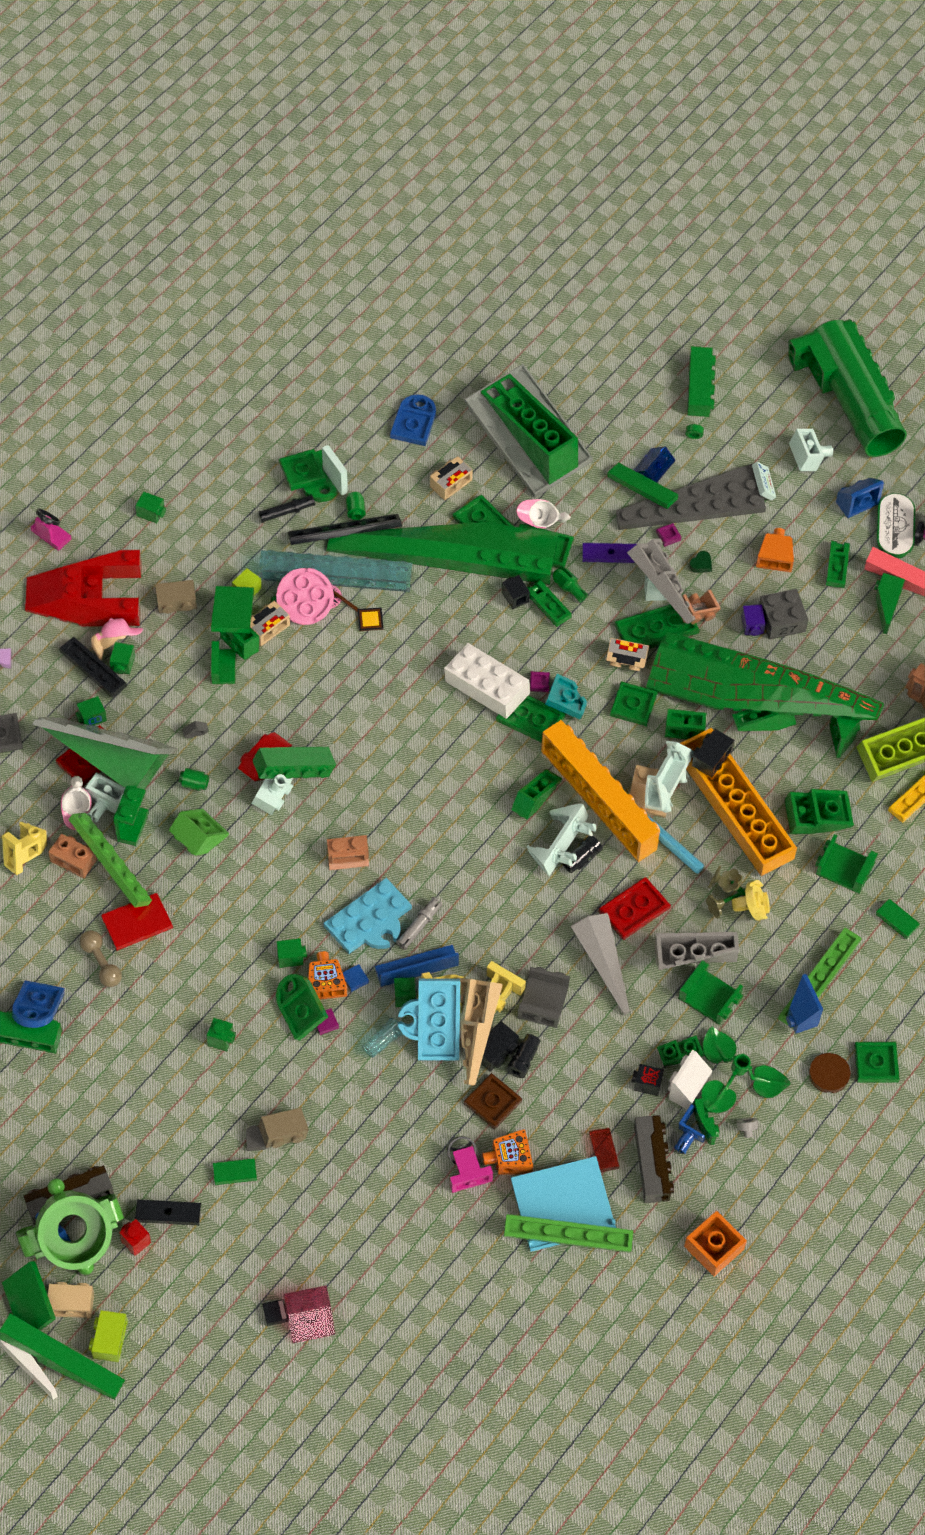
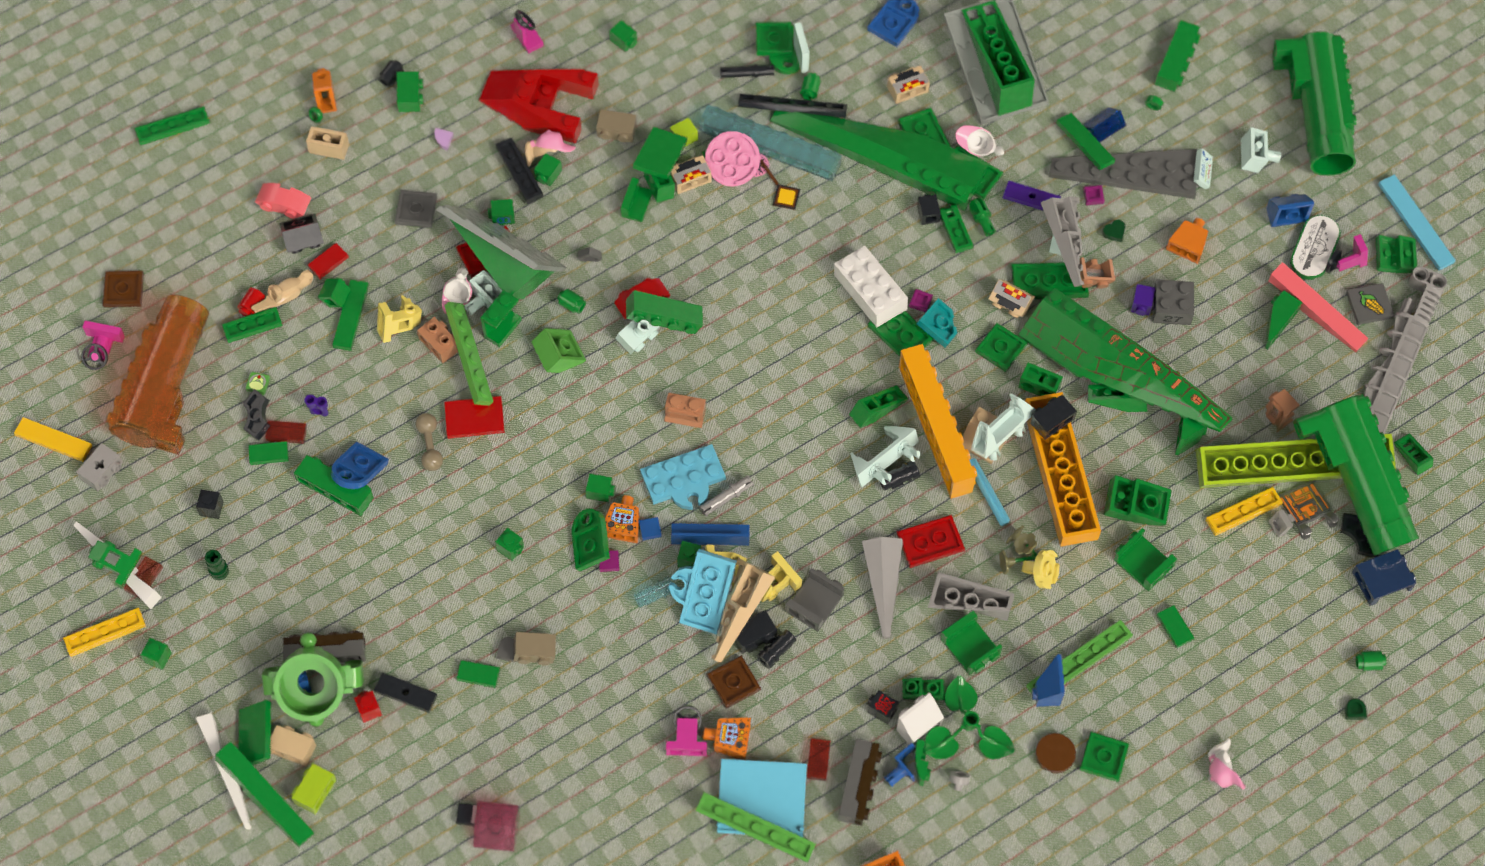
camera: 20 degrees right, 5 degrees up
(837, 564) = (1244, 269): green plate -> none

